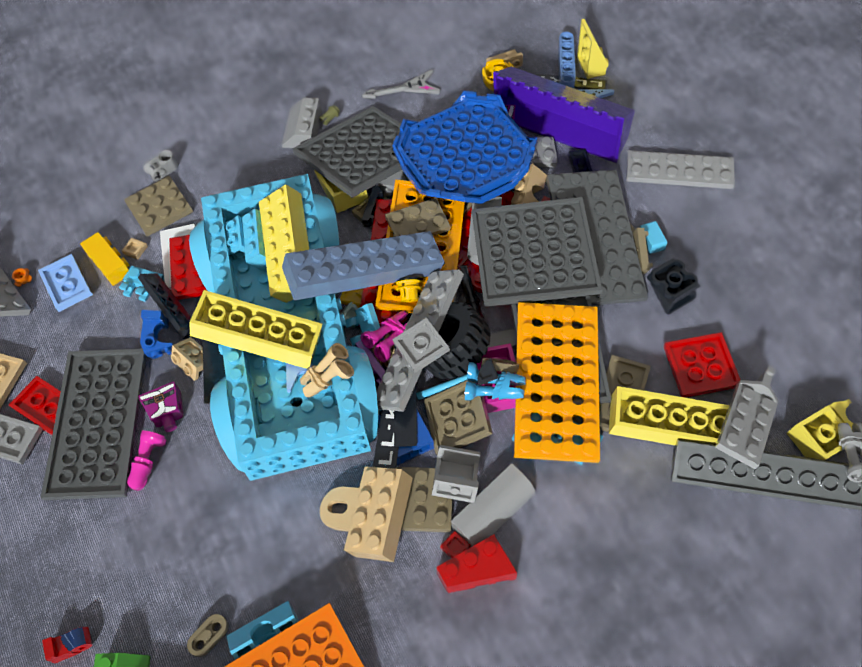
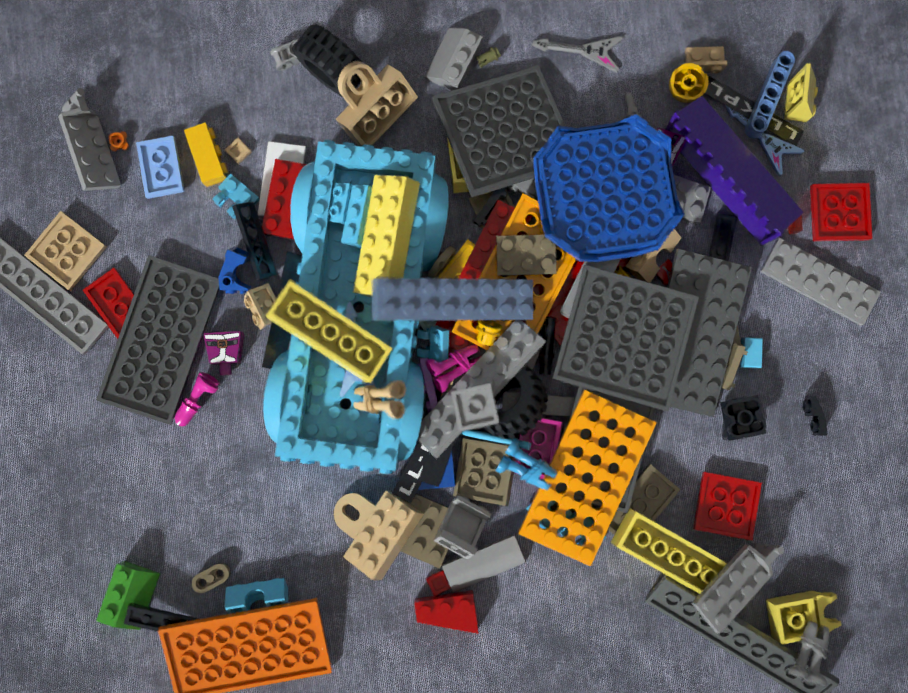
camera: 15 degrees right, 25 degrees up
(67, 645) = (94, 540): red leg -> none
(158, 206) = (274, 104): dark tan plate -> none
(195, 147) = (325, 56): none -> black tyre
(244, 163) = (374, 103): none -> tan brick
(487, 373) = (524, 458): black tile -> none
(503, 365) = (540, 448): dark tan plate -> none
(635, 136) = (796, 226): none -> clear red plate
(667, 117) = (841, 212): none -> red plate
(734, 260) = (813, 408): none -> black slope

